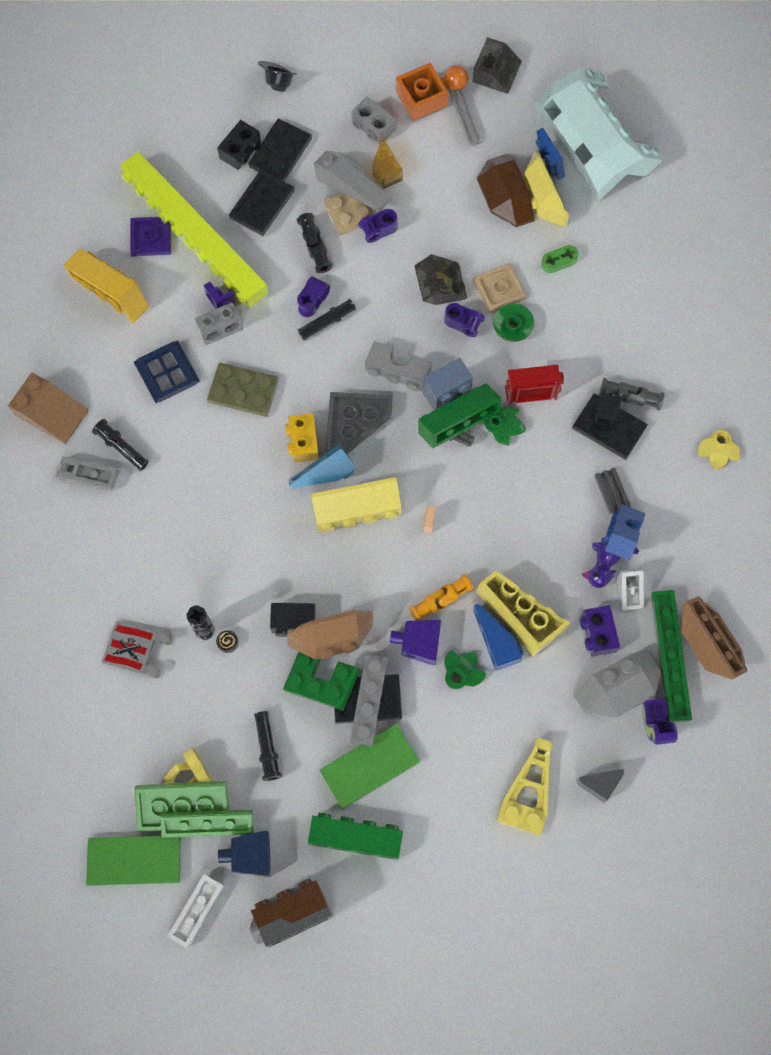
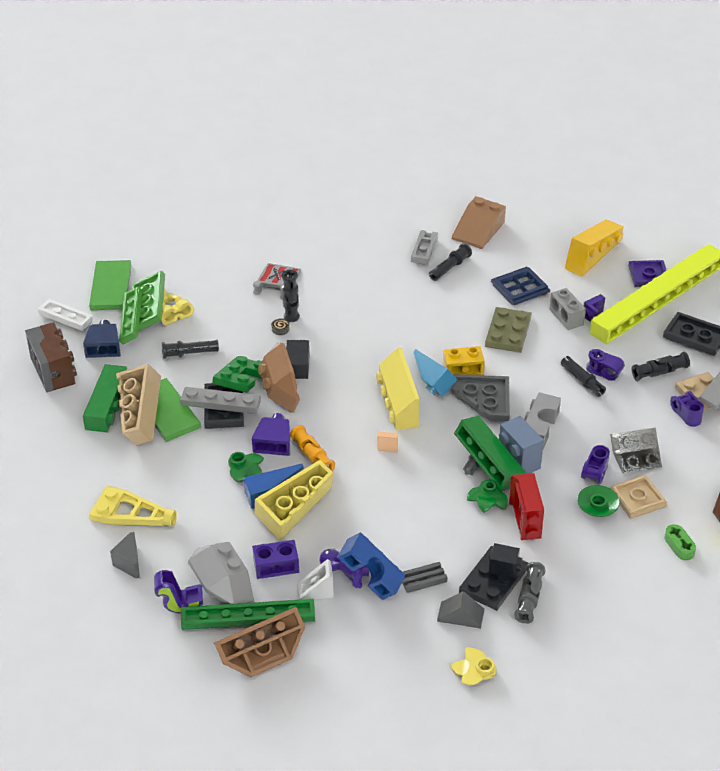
camera: 90 degrees right, 30 degrees down
(374, 793) = (139, 402): none -> tan wedge
(656, 459) = (461, 611): none -> dark grey slope

